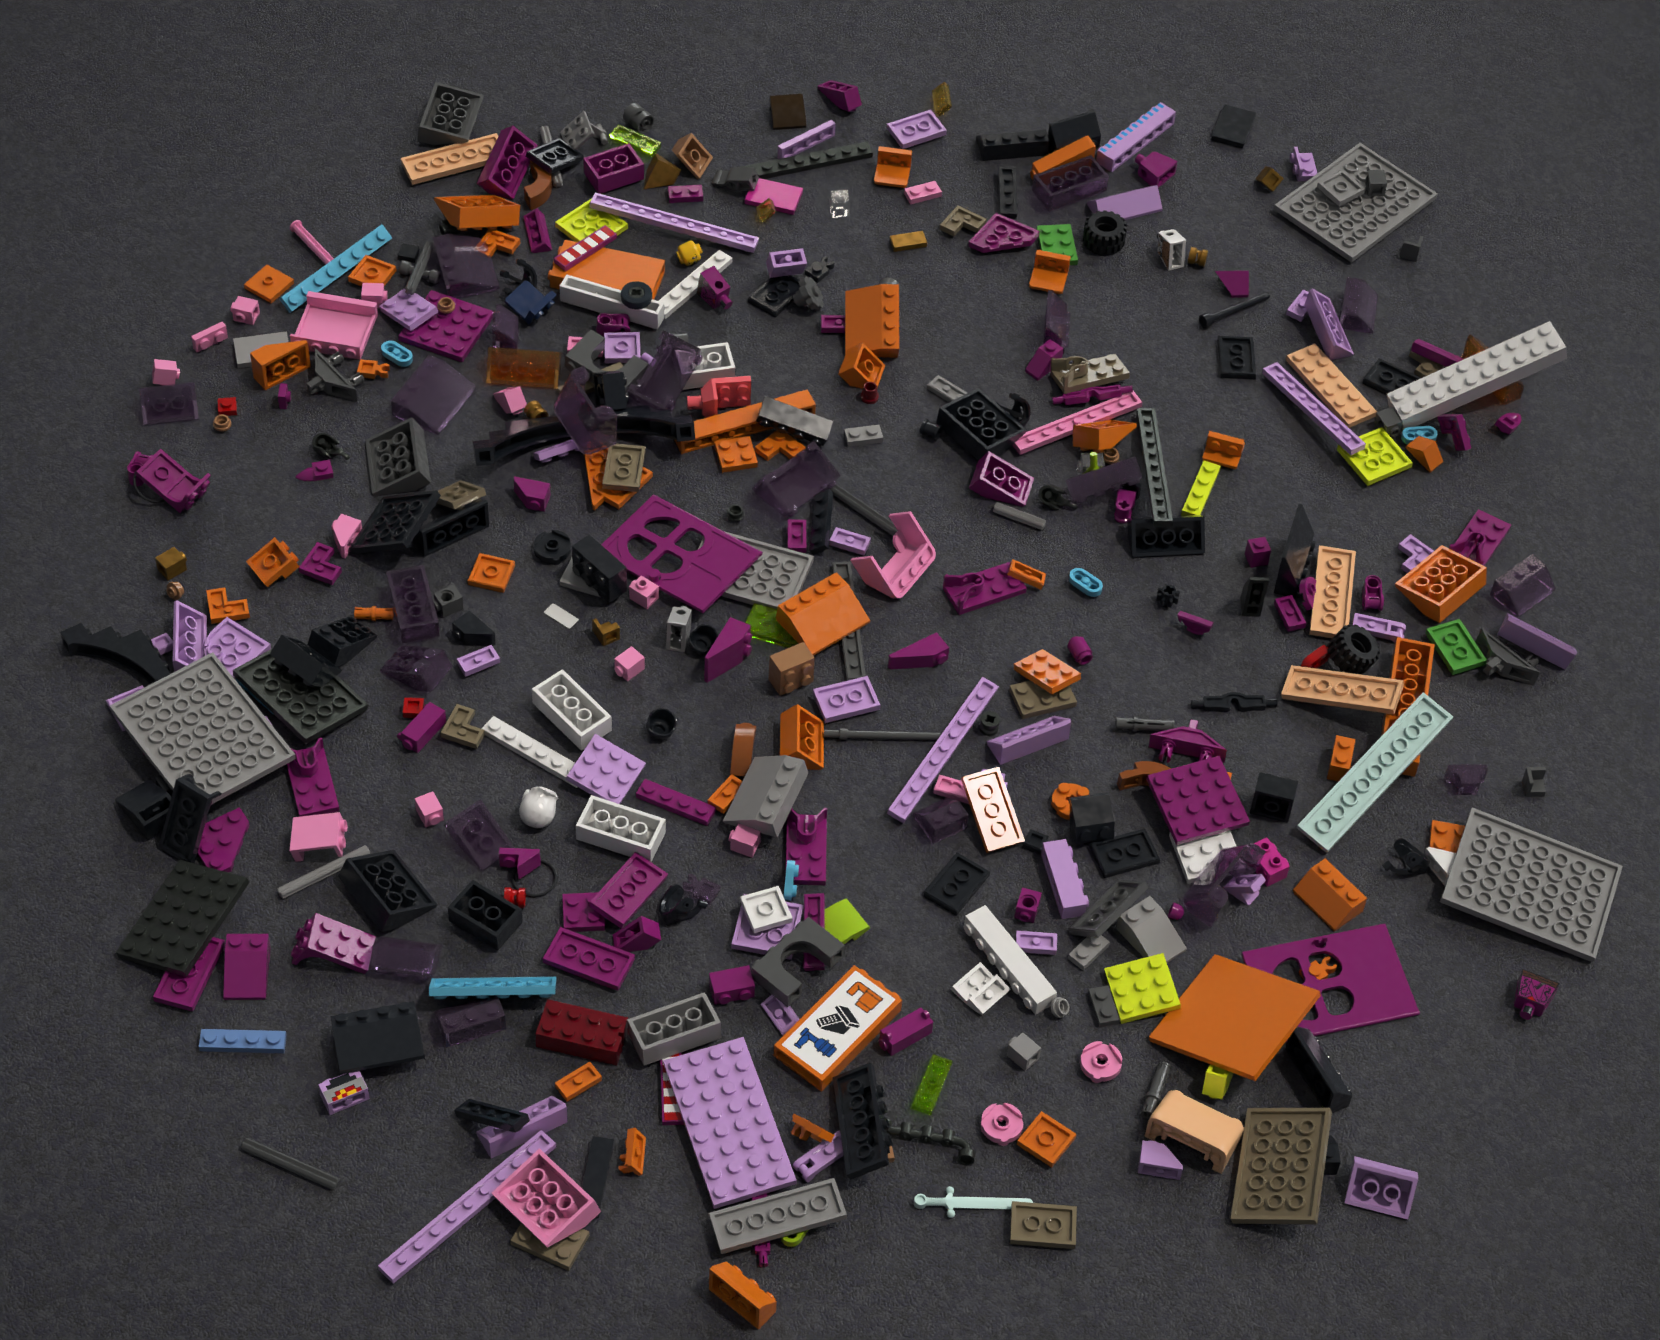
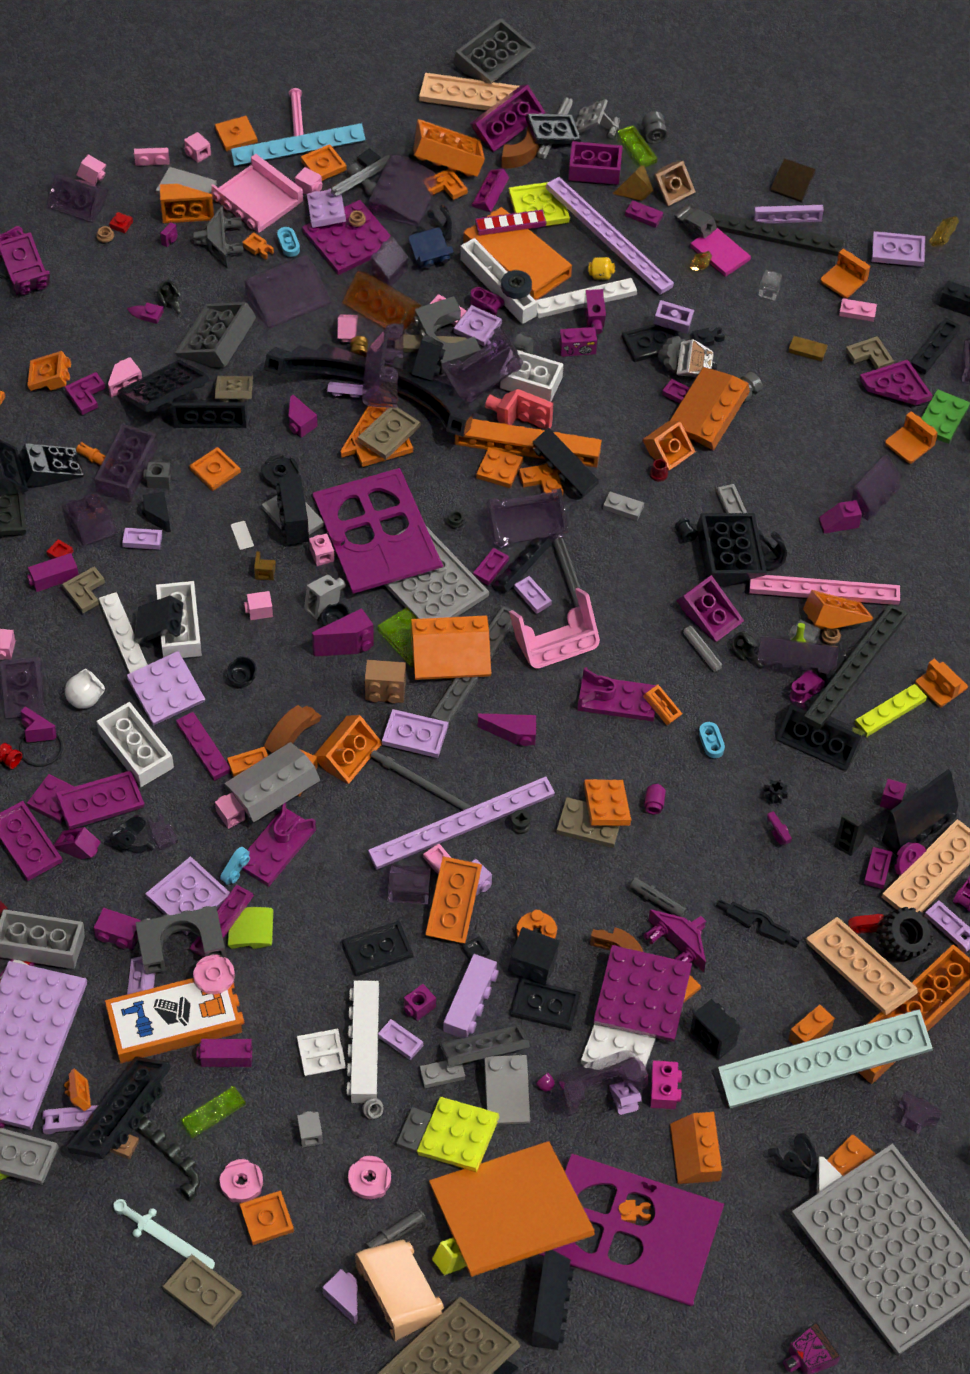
camera: 35 degrees right, 5 degrees up
(558, 716) = (158, 619): none -> black panel
(719, 321) = (578, 341): none -> magenta brick
(766, 909) = (193, 879): white plate -> none
(830, 289) = (693, 358): none -> torso
(841, 94) = (854, 186): magenta slope -> none
(849, 973) = (214, 974): none -> bright pink tile
(1030, 739) = (544, 854): lavender slope -> none
(1087, 373) = (872, 549): dark tan plate -> none
(1100, 393) = (867, 572): magenta piece -> none

